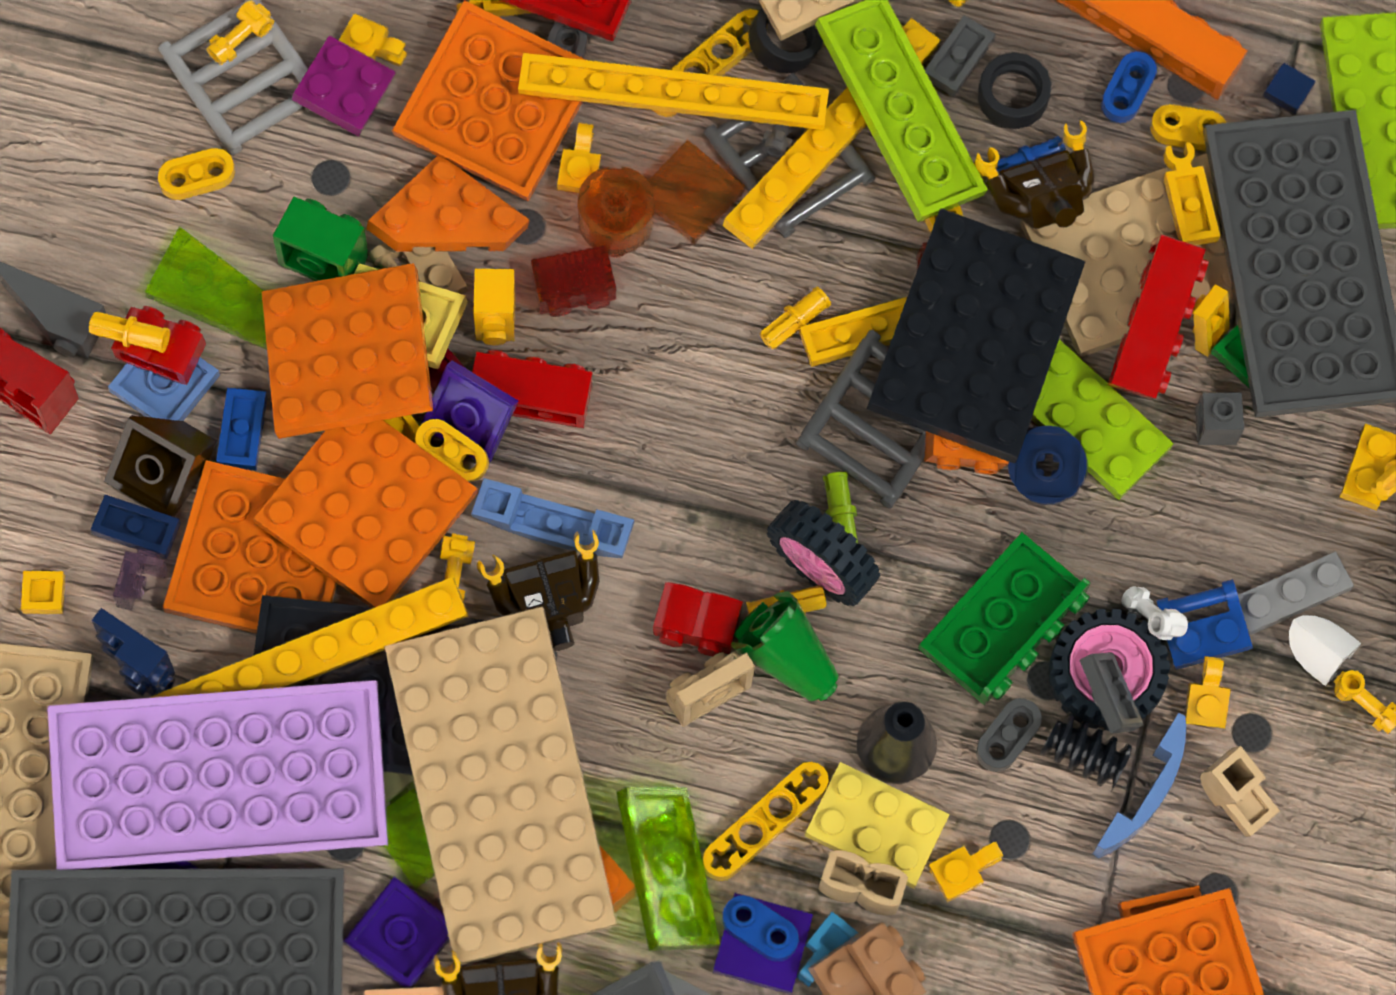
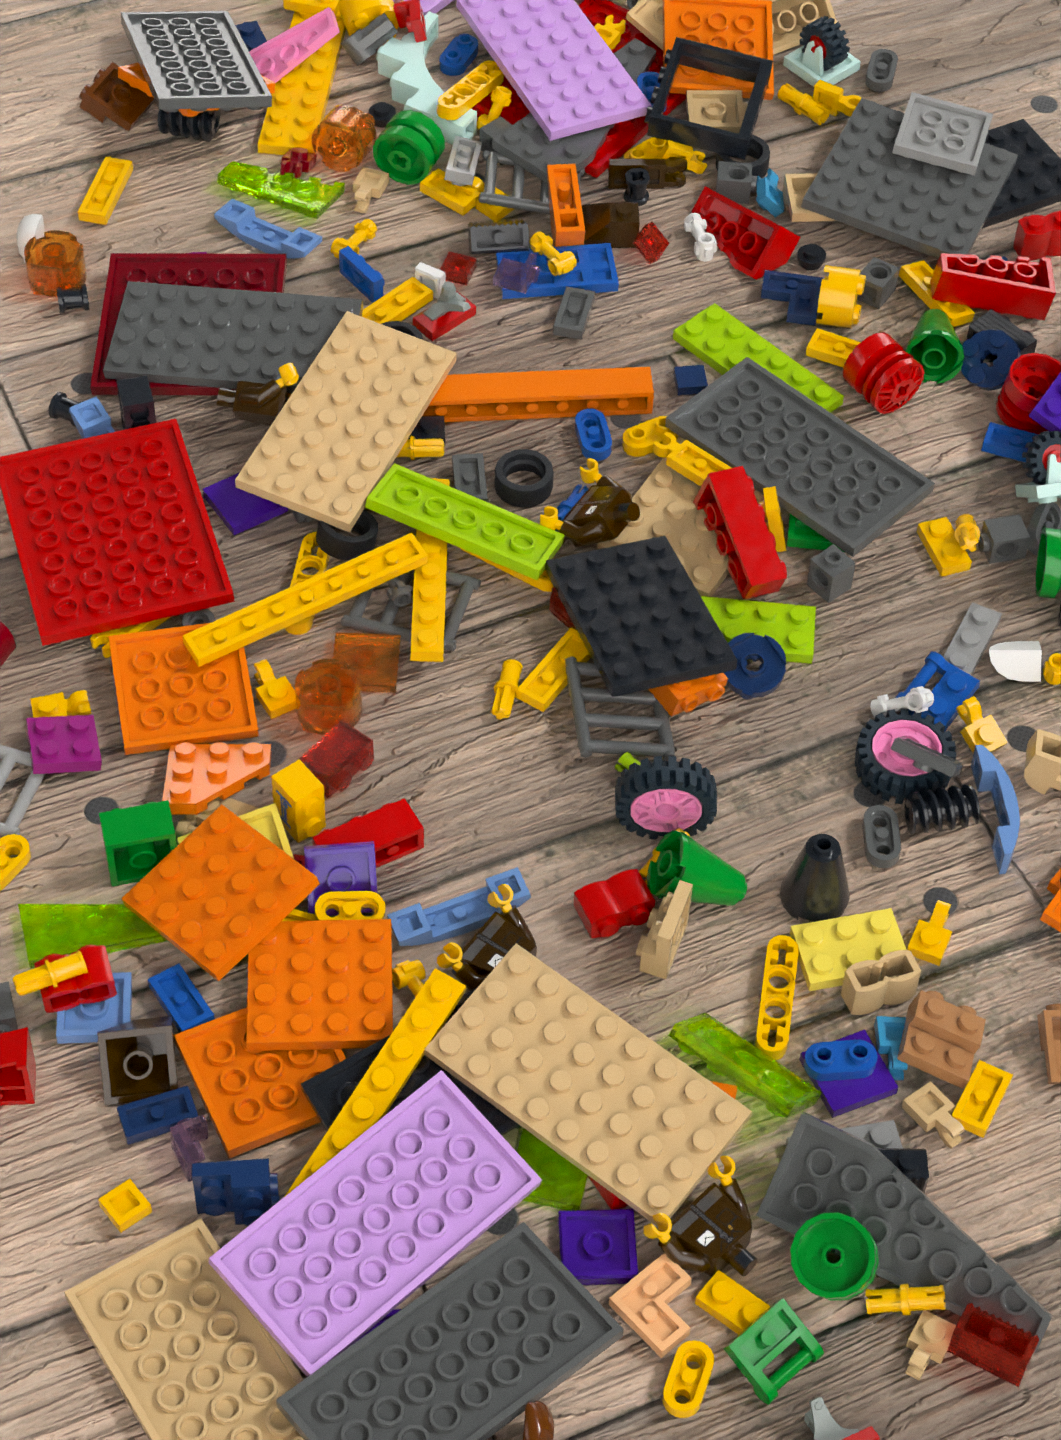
camera: 35 degrees left, 20 degrees down
(1005, 619) = (813, 772): green bracket -> none

